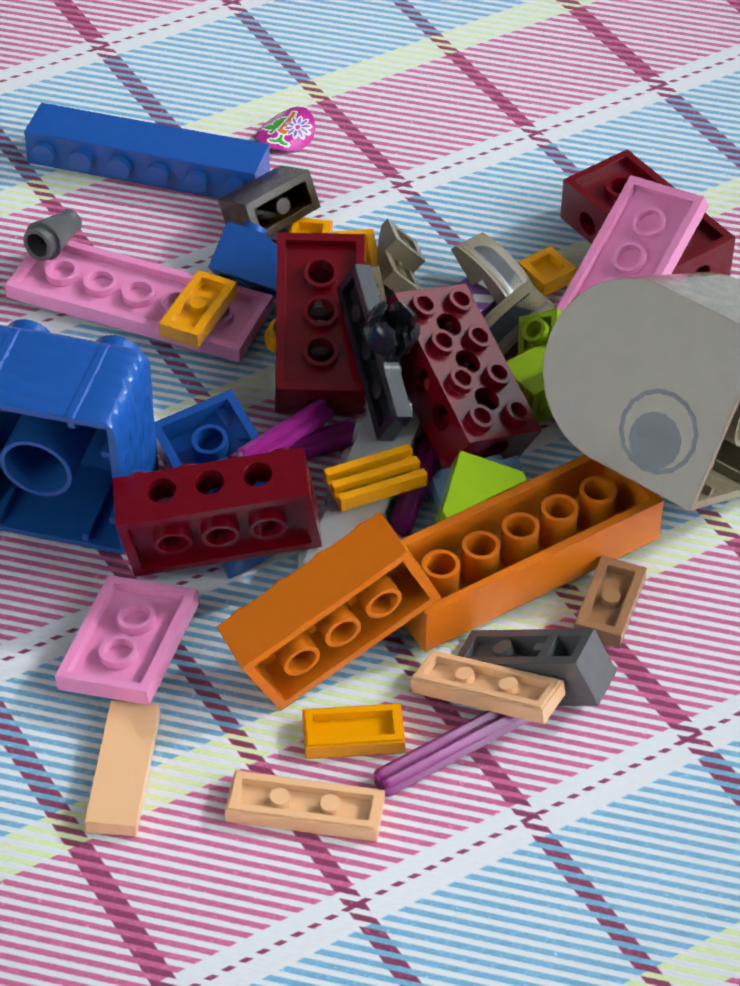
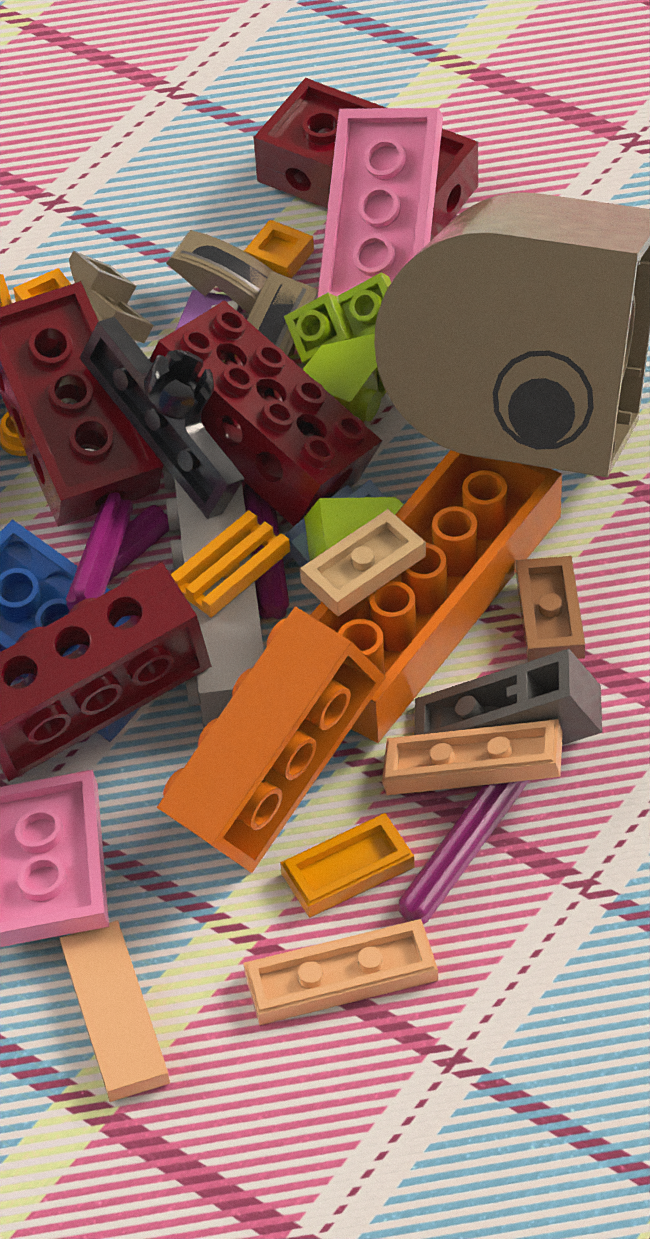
camera: 20 degrees left, 5 degrees up
(469, 508) = (363, 562): none -> tan plate

